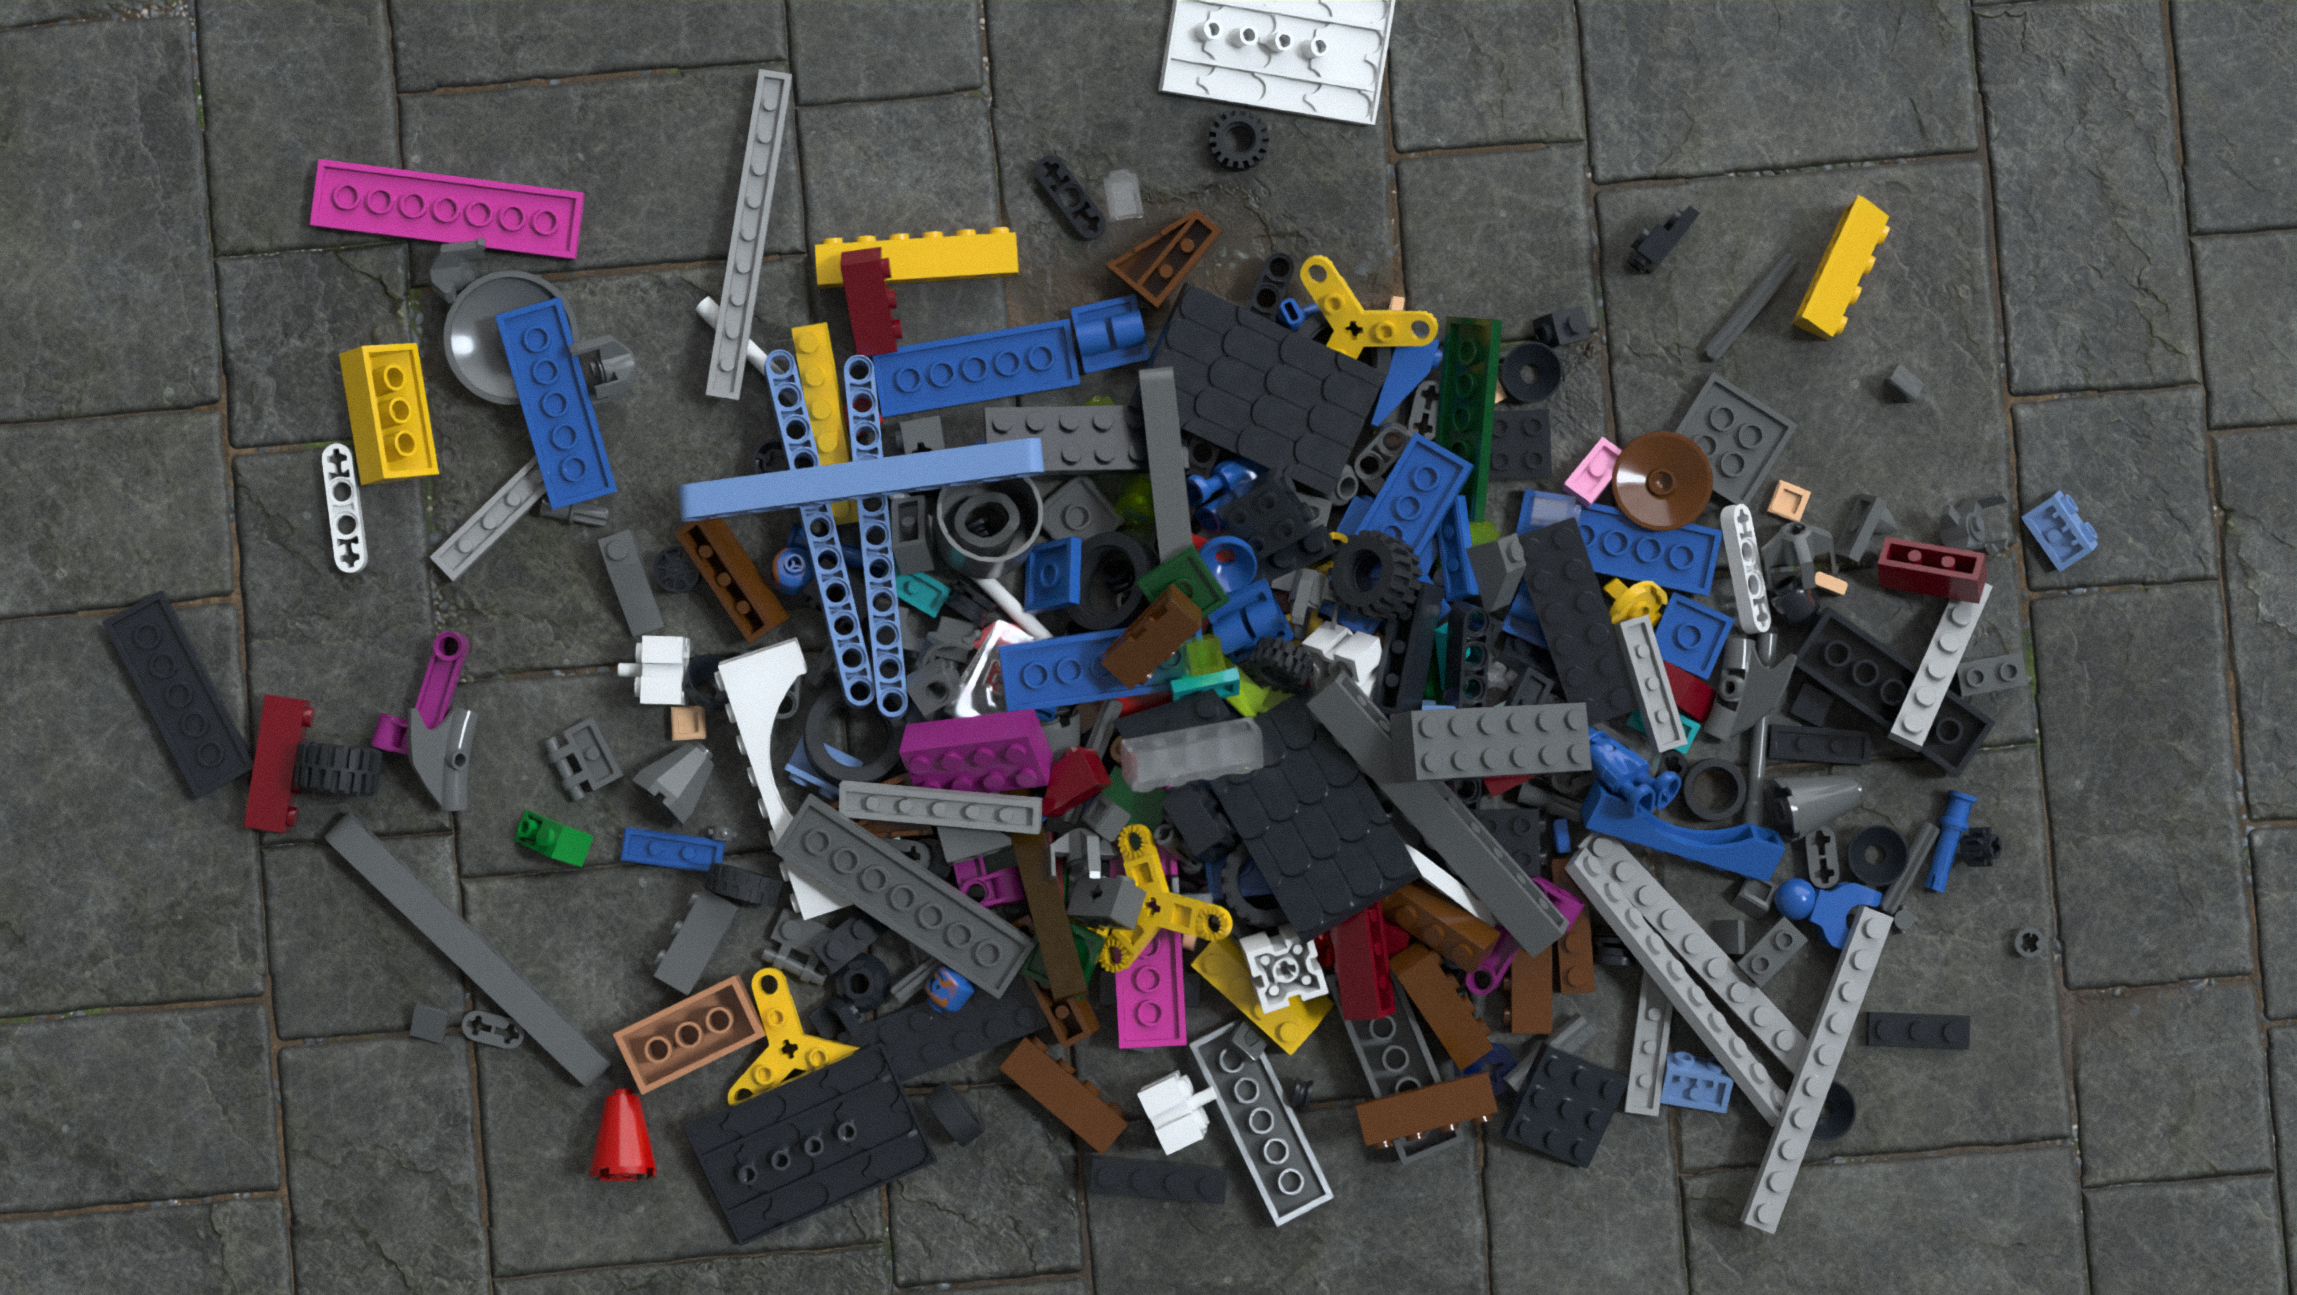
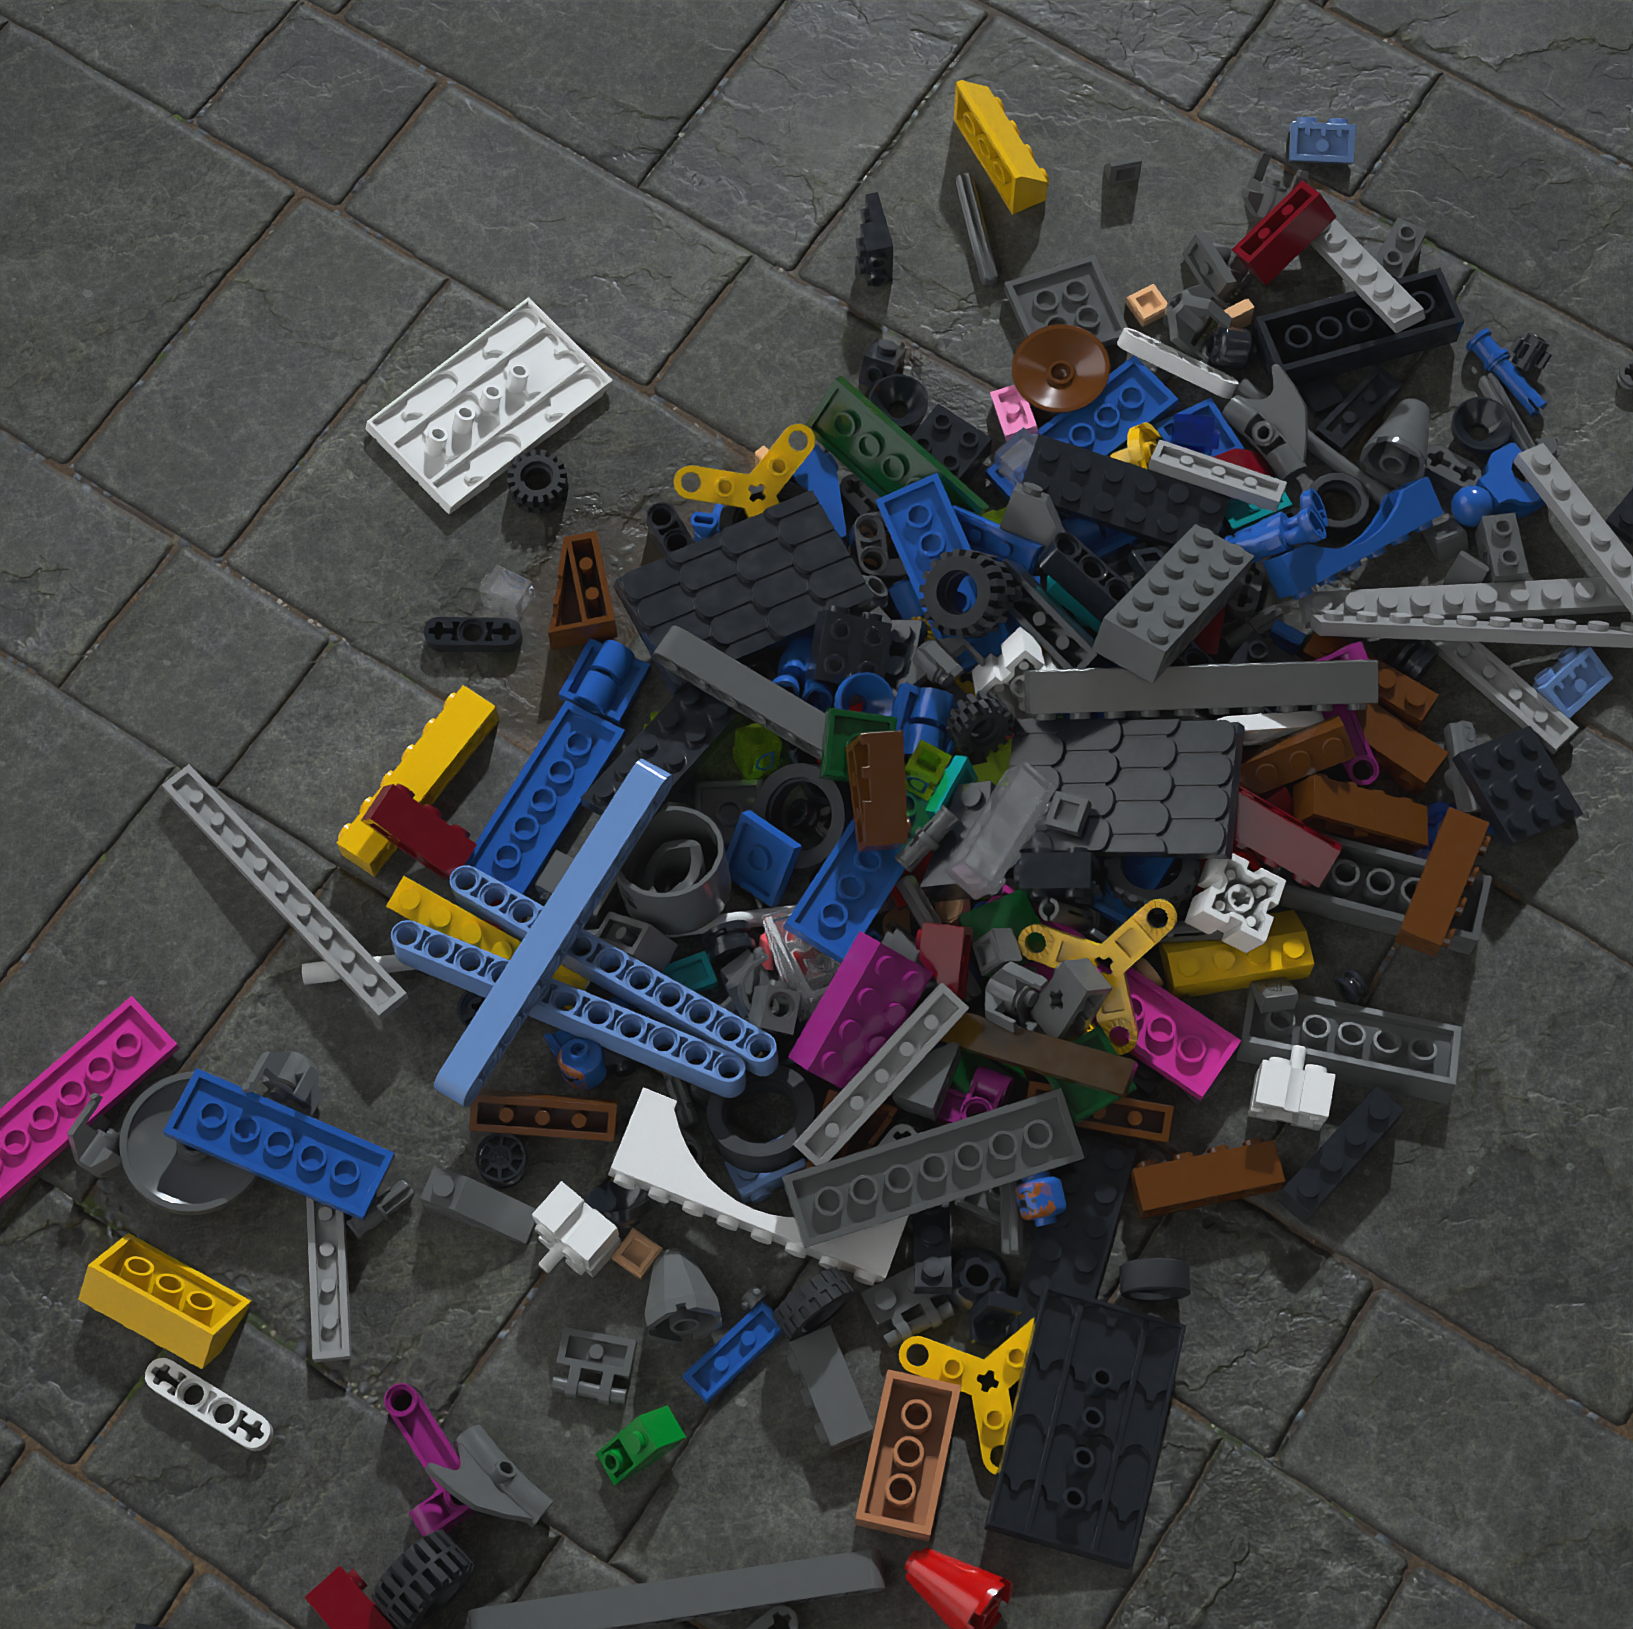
camera: 50 degrees left, 20 degrees down
(1148, 700) = (927, 838): none -> dark grey pin
(1250, 791) = (1068, 813): none -> dark grey plate
(1679, 636) = (1195, 433): none -> clear blue brick

